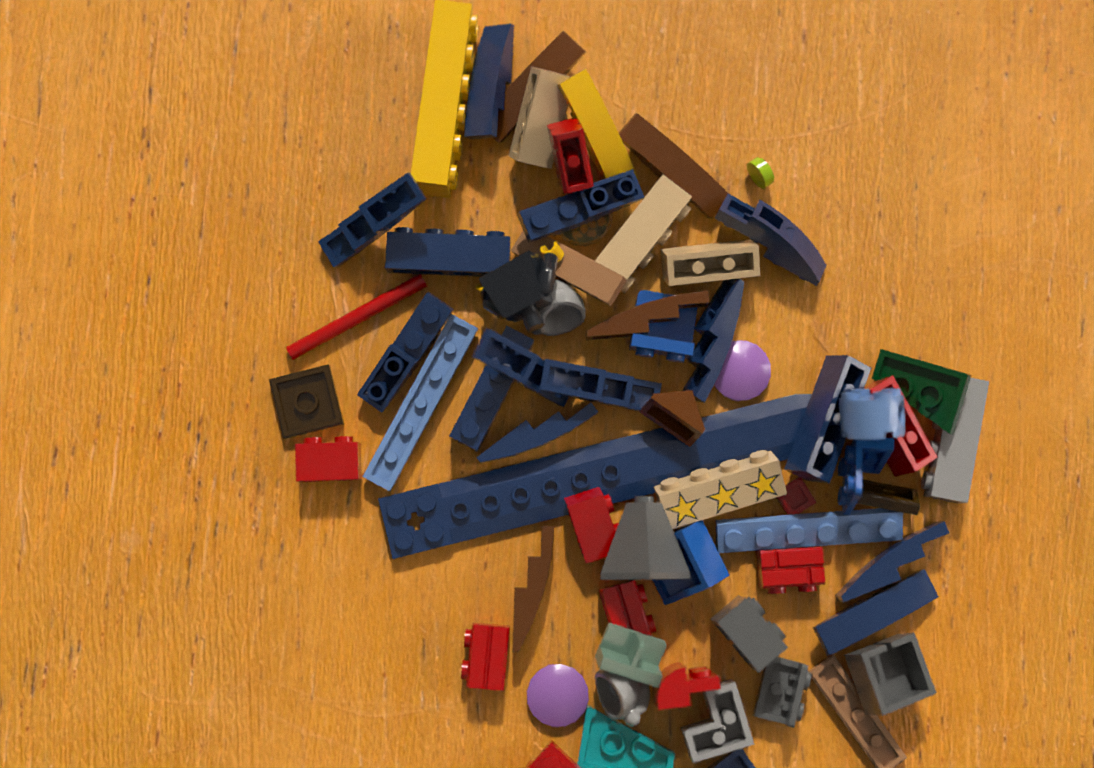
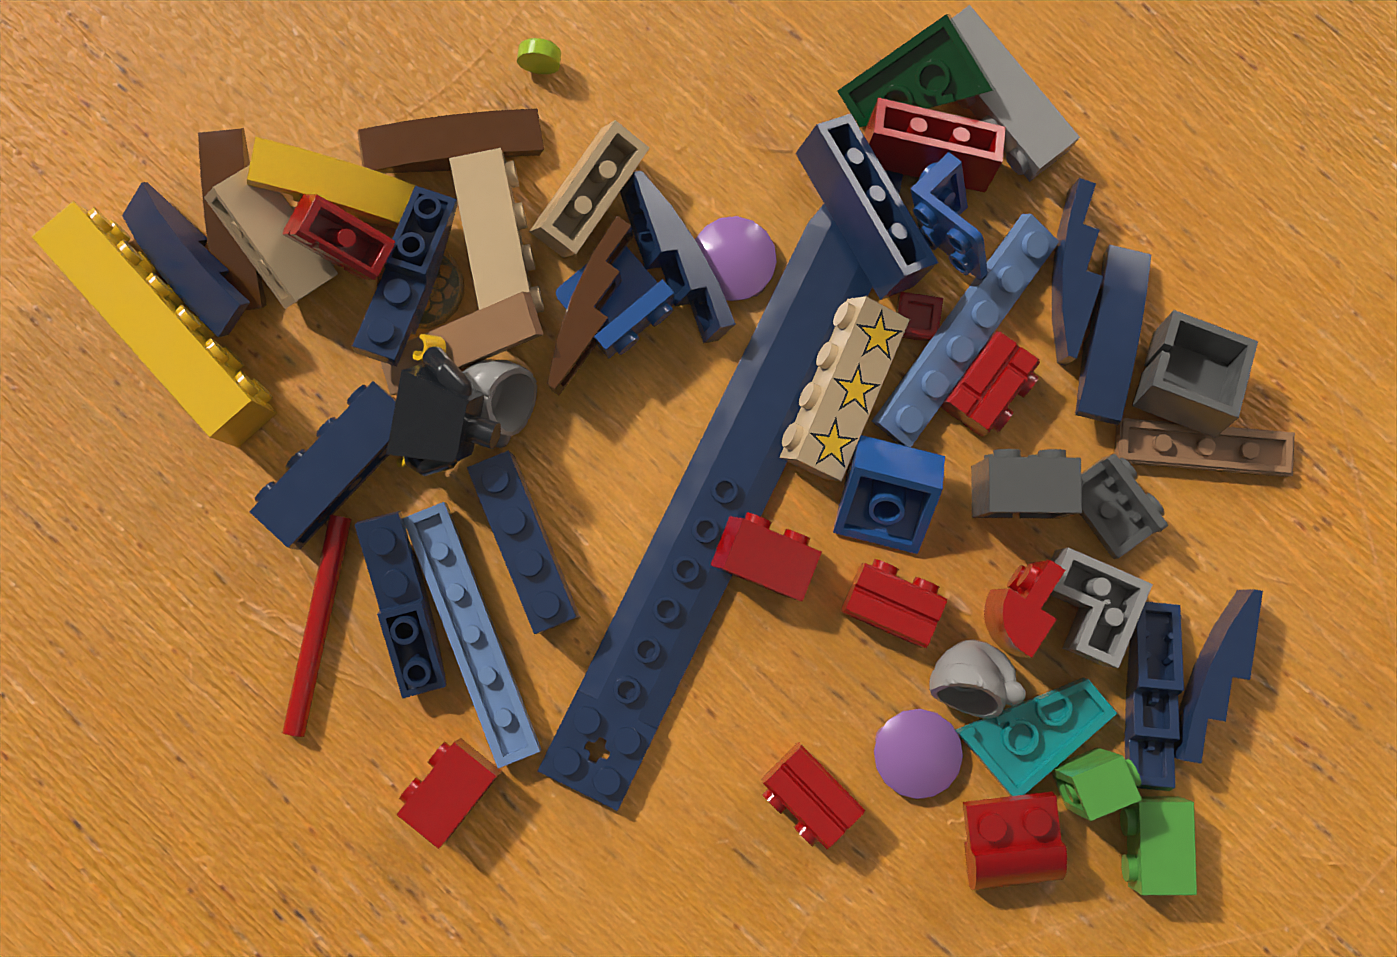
camera: 45 degrees left, 0 degrees up
(306, 401) = (363, 760): dark brown tile -> none
(372, 220) = (221, 515): dark blue slope -> none
(514, 363) = (527, 487): dark blue slope -> none
(526, 438) = (610, 551): dark blue slope -> none
(528, 598) = (787, 696): reddish brown slope -> none
(596, 385) = (620, 423): dark blue slope -> none
(631, 654) = (944, 637): sand green panel -> none
(644, 545) = (837, 520): dark grey slope -> none
(676, 414) = (723, 365): reddish brown slope -> none
(784, 240) = (630, 91): slope -> none
(872, 415) = (905, 150): medium blue brick -> none
(889, 497) = (1007, 212): dark brown tile -> none

